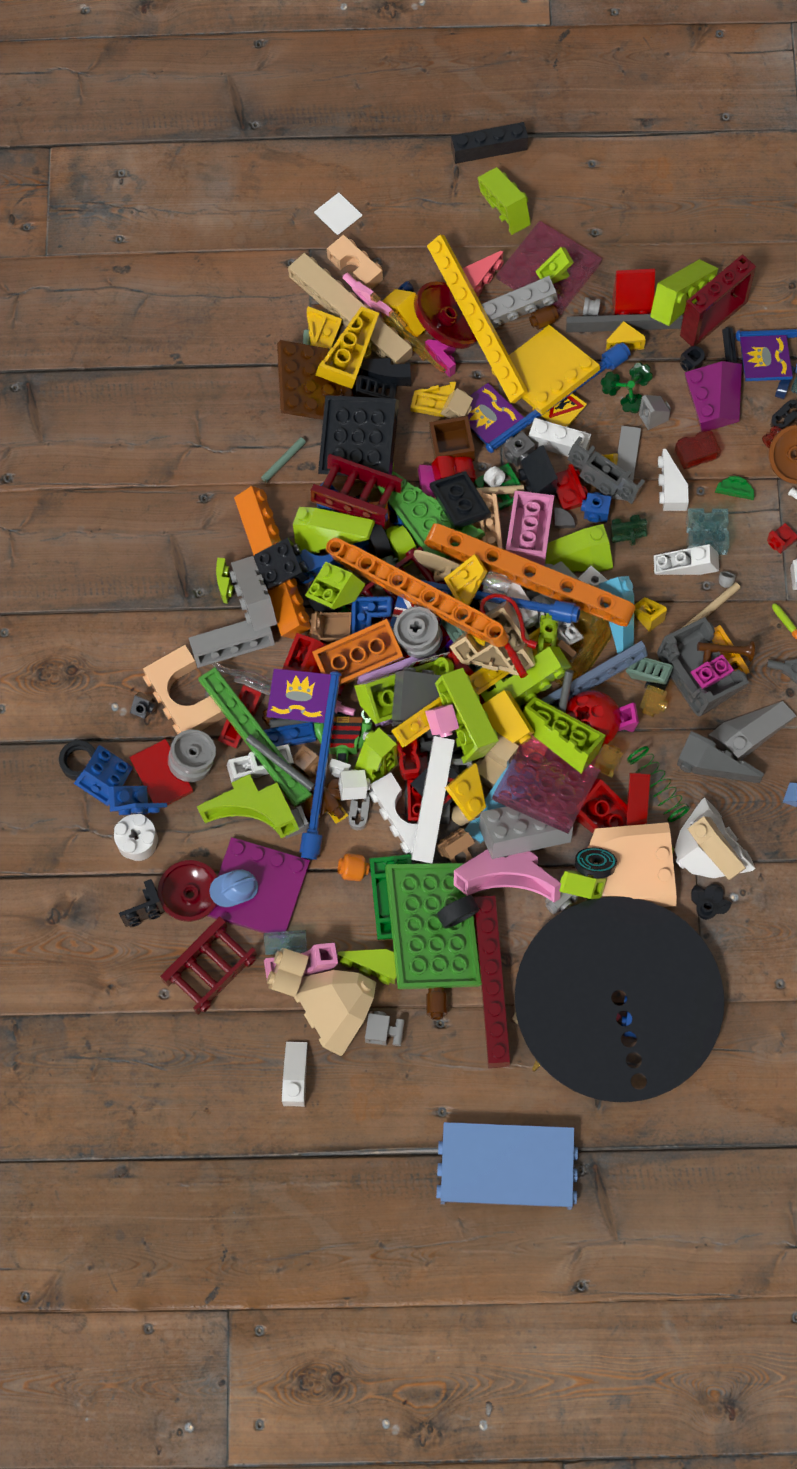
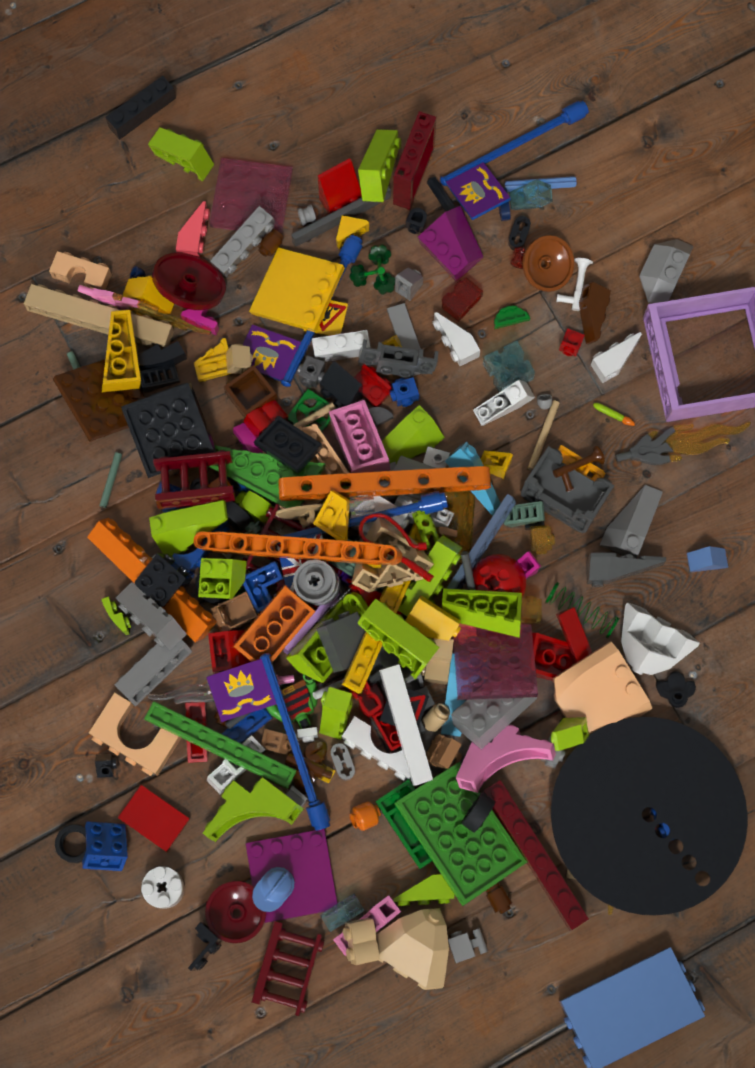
camera: 30 degrees left, 5 degrees up
(132, 800) = (144, 858): blue bracket -> none
(191, 755) = (184, 787): light grey wheel -> none
(280, 762) = (255, 757): dark grey piece -> none
(294, 1074) = (411, 1023): white slope -> none
(322, 328) = (82, 344): yellow wing -> none
(338, 213) = (40, 232): white sticker -> none
(353, 784) = (328, 743): white brick -> none
(442, 720) = (381, 653): bright pink brick -> none
(468, 792) = (431, 702): yellow wing -> none
(477, 319) = (215, 272): yellow plate -> none
(494, 476) = (303, 407): white tile -> none
(556, 266) = (258, 194): lime slope -> none
(595, 862) = (567, 702): black tile -> none
(629, 530) = (443, 399): clear green hips -> none
(712, 671) = (578, 490): dark pink slope -> none
(716, 847) = (662, 642): tan slope -> none

